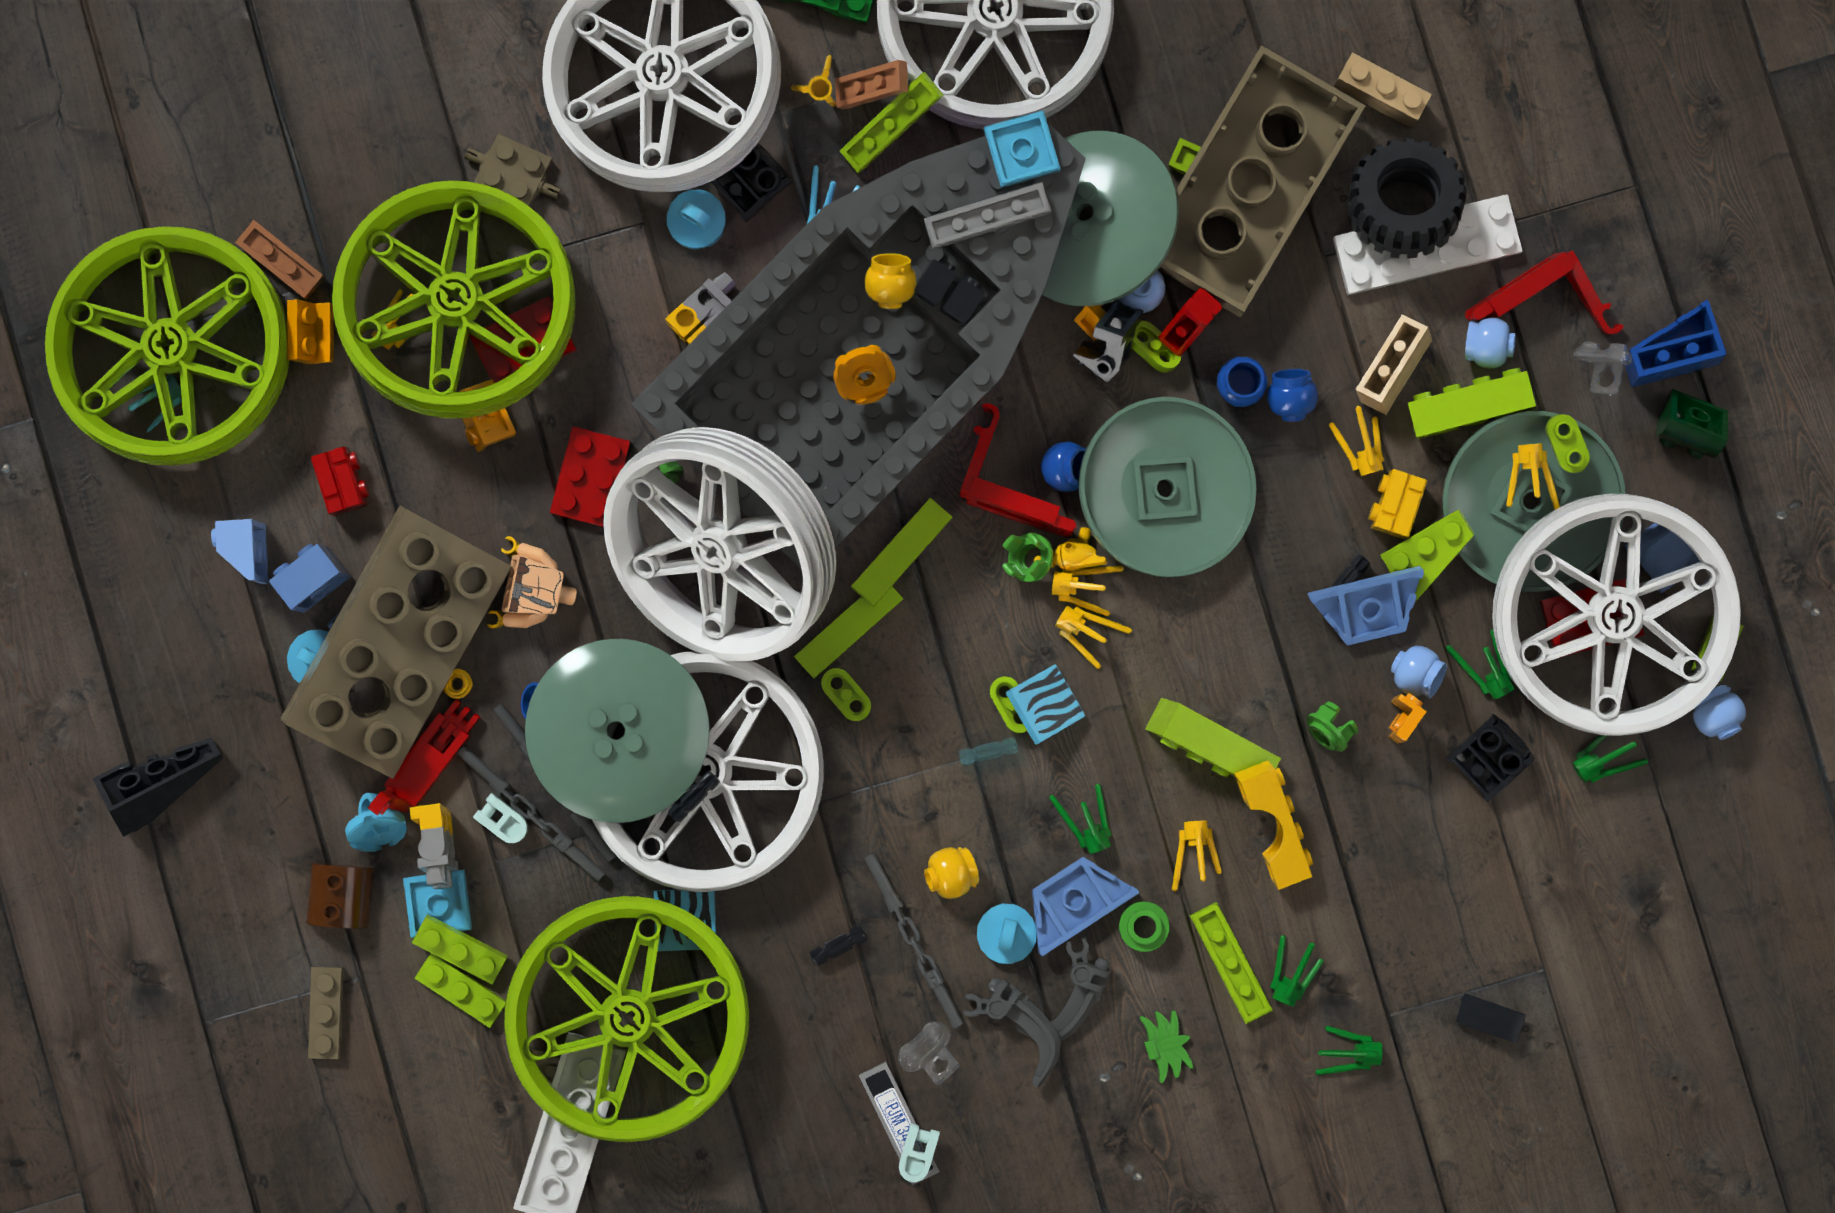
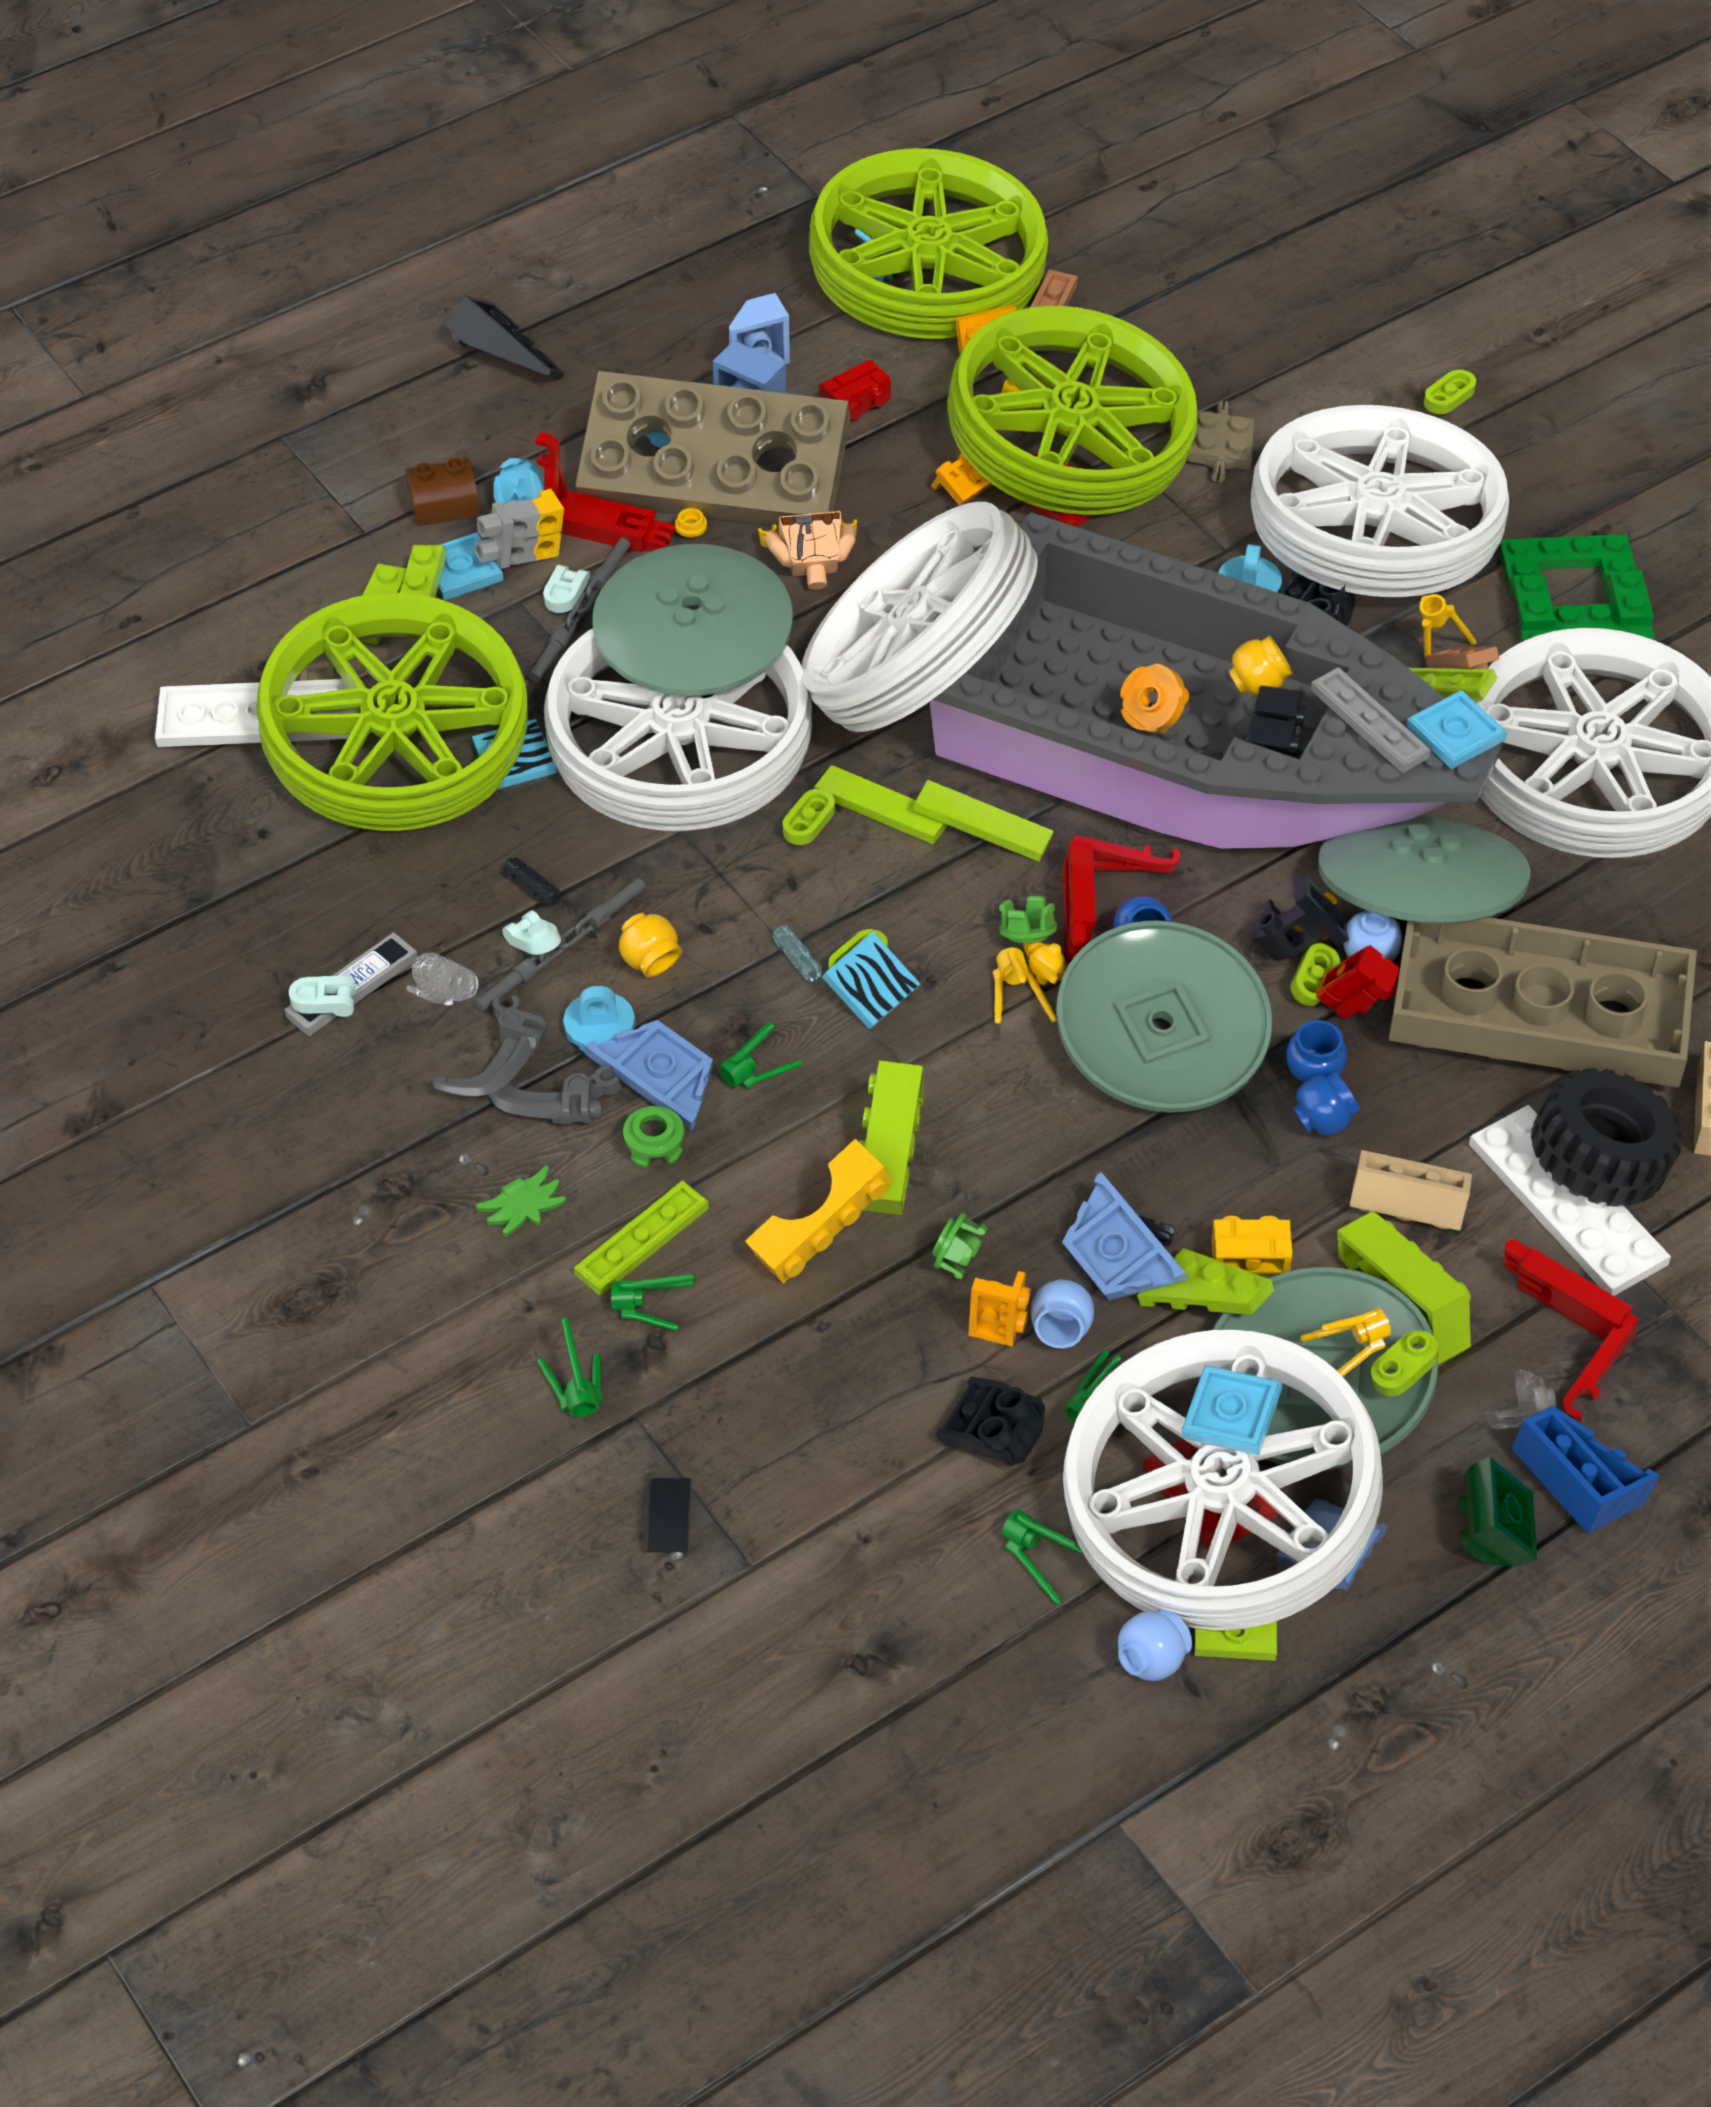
camera: 70 degrees right, 35 degrees down
(325, 1012) = (320, 513): dark tan plate -> none
(694, 796) = (647, 696): black axle -> none
(910, 957) = (532, 934): none -> light aqua plate
(1072, 622) = (972, 987): yellow plant -> none
(1197, 834) = (778, 1159): yellow plant -> none
(1371, 458) = (1290, 1202): yellow plant -> none
(1489, 342) = (1486, 1273): light blue piece -> none
(1581, 591) = (1231, 1410): none -> medium azure tile

